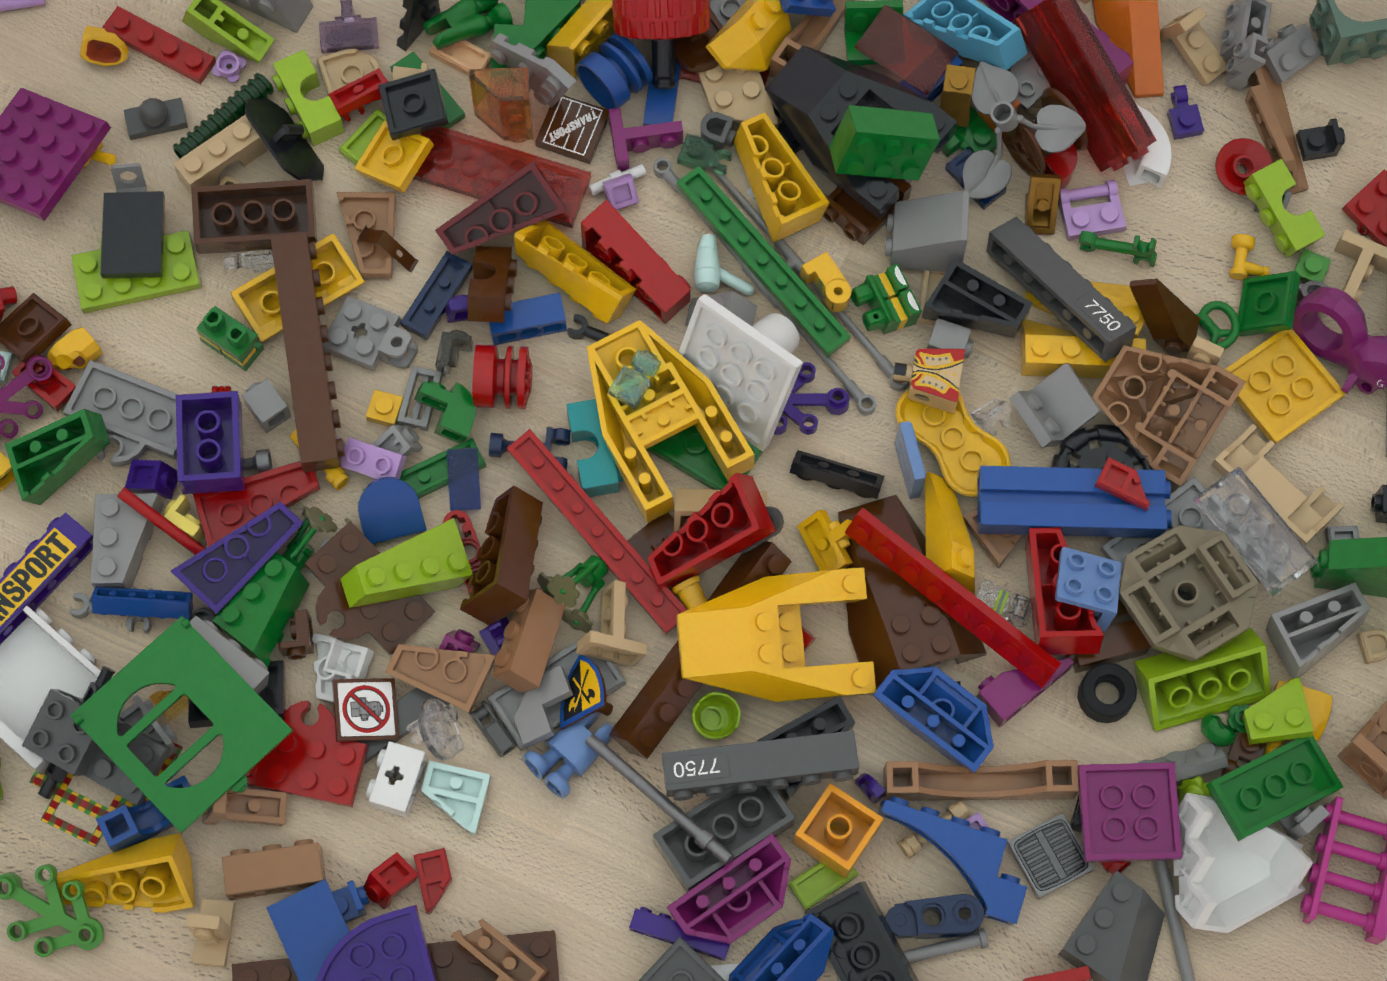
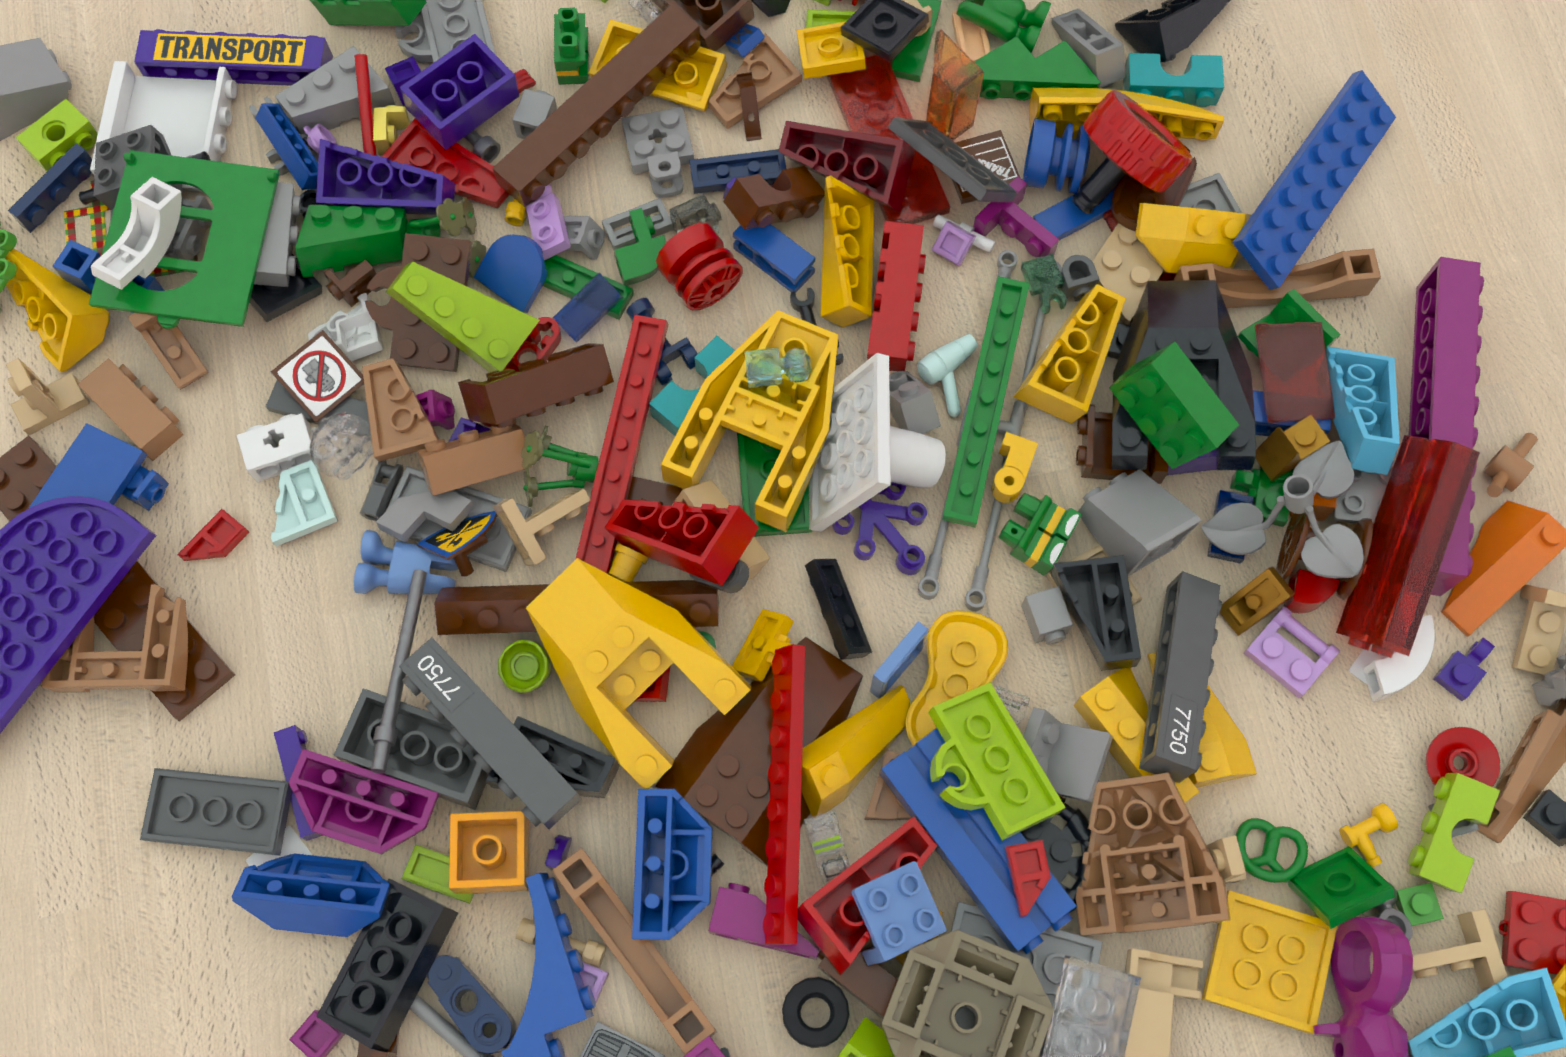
camera: 55 degrees right, 0 degrees up
(20, 811) = (52, 188): none -> dark blue plate
(149, 578) = (317, 133): none -> lavender plate
(166, 749) = (146, 237): none -> white arch
(311, 760) = (242, 362): red plate -> none
(329, 210) = (745, 40): none -> blue tile
(384, 408) = (605, 203): yellow plate -> none
(389, 880) = (185, 504): red bracket -> none
(546, 76) = (992, 86): light grey plate -> none
(566, 141) = (953, 160): none -> dark grey tile
(933, 377) = (997, 623): torso -> none
(1032, 450) = (991, 763): none -> lime plate
(1141, 250) = (1288, 721): green bar -> none
(1165, 315) = (1238, 795): reddish brown slope -> none

